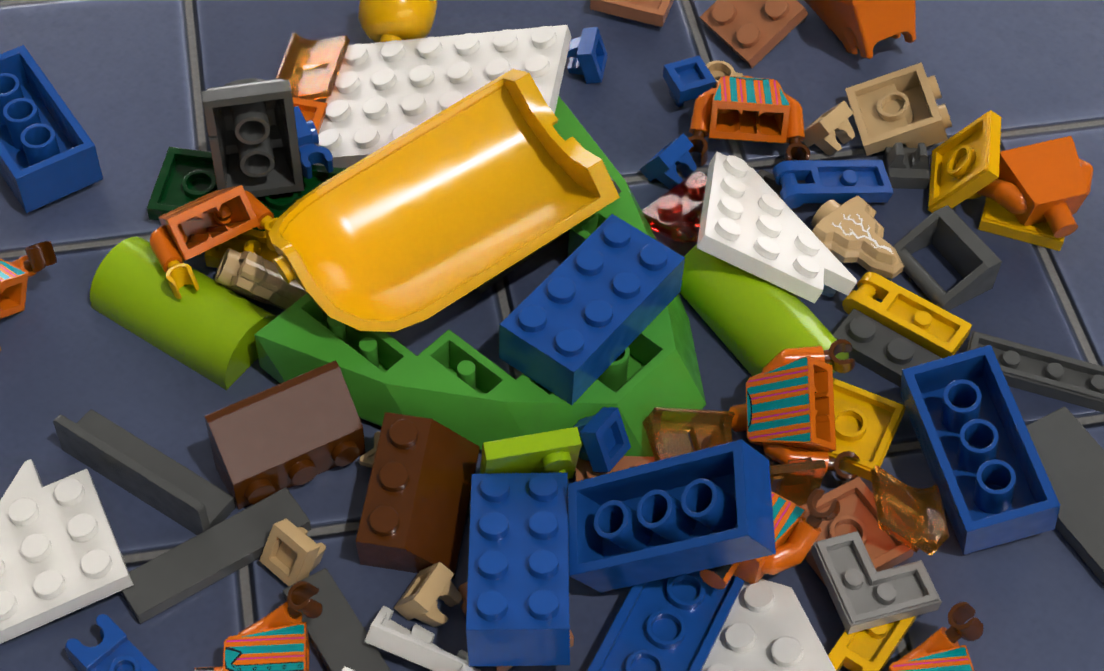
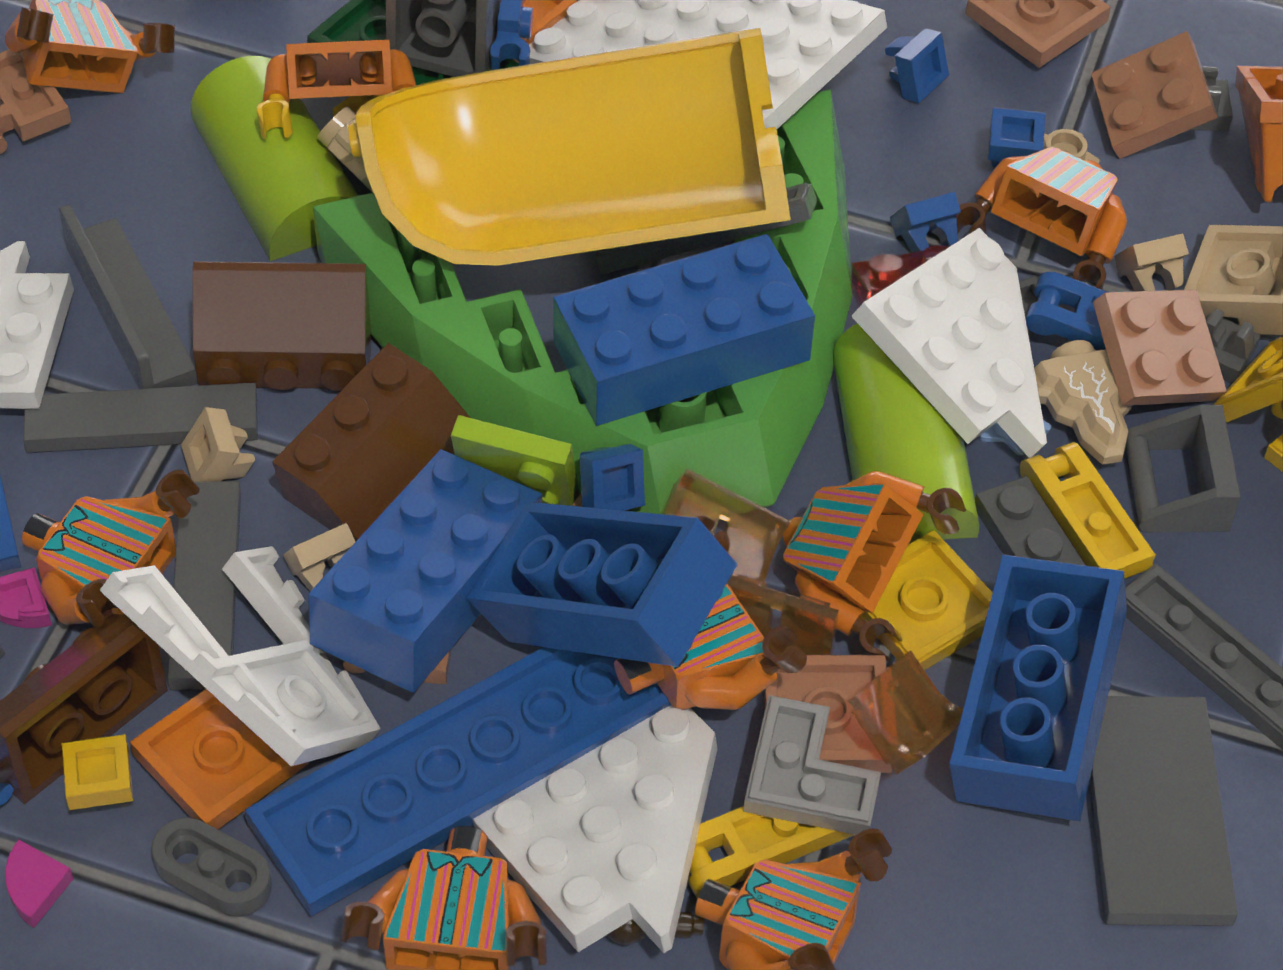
camera: 30 degrees right, 0 degrees up
(881, 183) = (1159, 347): none -> nougat plate

